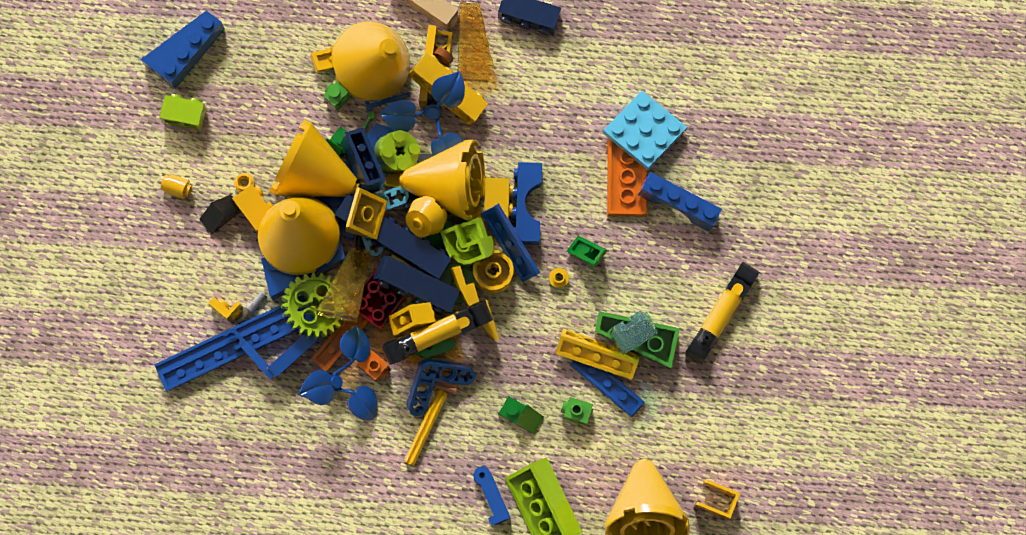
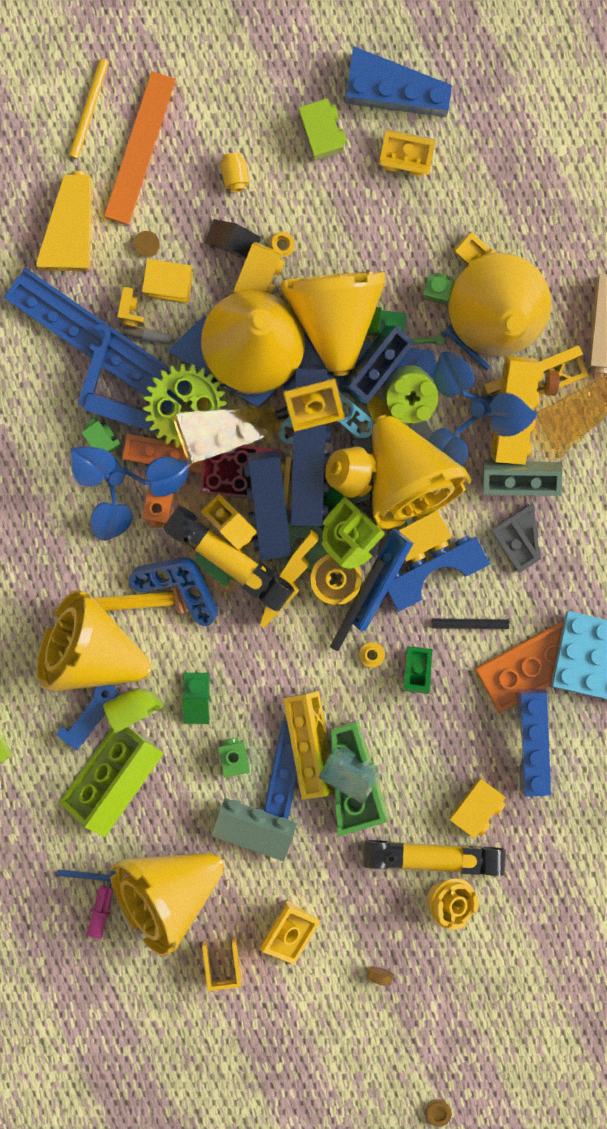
camera: 65 degrees right, 10 degrees up
(72, 261) = (88, 108): none -> yellow bar
(121, 241) = (140, 148): none -> orange tile
(147, 319) = (69, 229): none -> yellow slope
(188, 273) = (147, 244): none -> pearl gold tile
(222, 271) = (167, 281): none -> yellow piece
(232, 66) = (407, 152): none -> yellow bracket
(297, 378) = (100, 436): none -> bright green brick
(442, 468) = (87, 649): none -> yellow cone
(496, 111) = (521, 479): none -> sand green brick
(502, 461) = (131, 707): none -> lime brick
(519, 266) = (357, 604): none -> black bar
(535, 136) = (519, 538): none -> dark grey wing
(575, 201) = (441, 623): none -> black bar
(634, 424) = (254, 829): none -> sand green brick
(704, 265) = (477, 808): none -> yellow brick
(720, 441) = (289, 933): none -> yellow slope
(759, 316) = (452, 903): none -> yellow cone
(784, 395) = (380, 976): none -> pearl gold tile
(901, 409) = (438, 1113): none -> pearl gold tile

